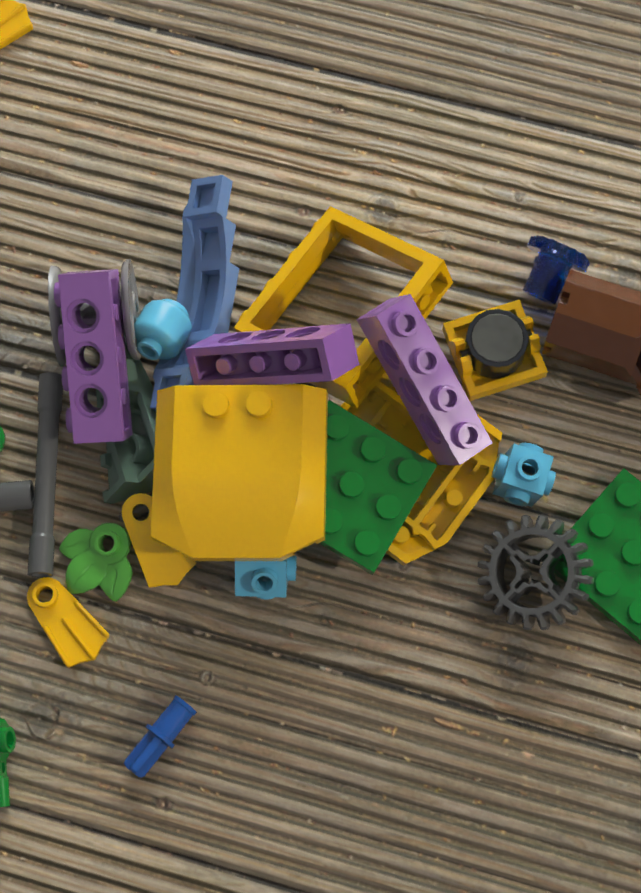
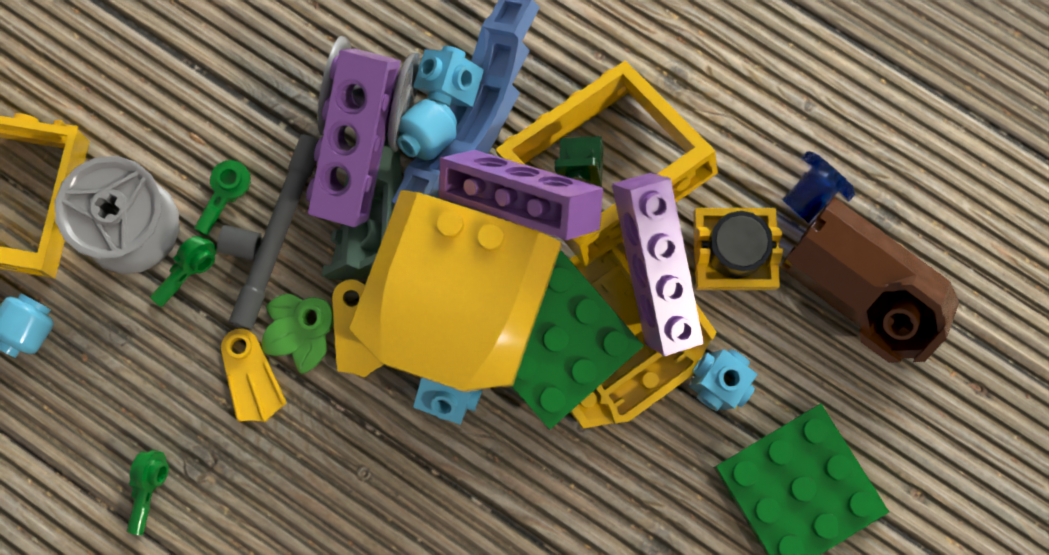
camera: 10 degrees right, 5 degrees up
(159, 737) = (300, 516): blue axle -> none
(166, 274) = (448, 77): none -> medium azure brick
(319, 306) = (581, 159): none -> dark green bracket
(519, 586) = (669, 494): dark grey gear -> none

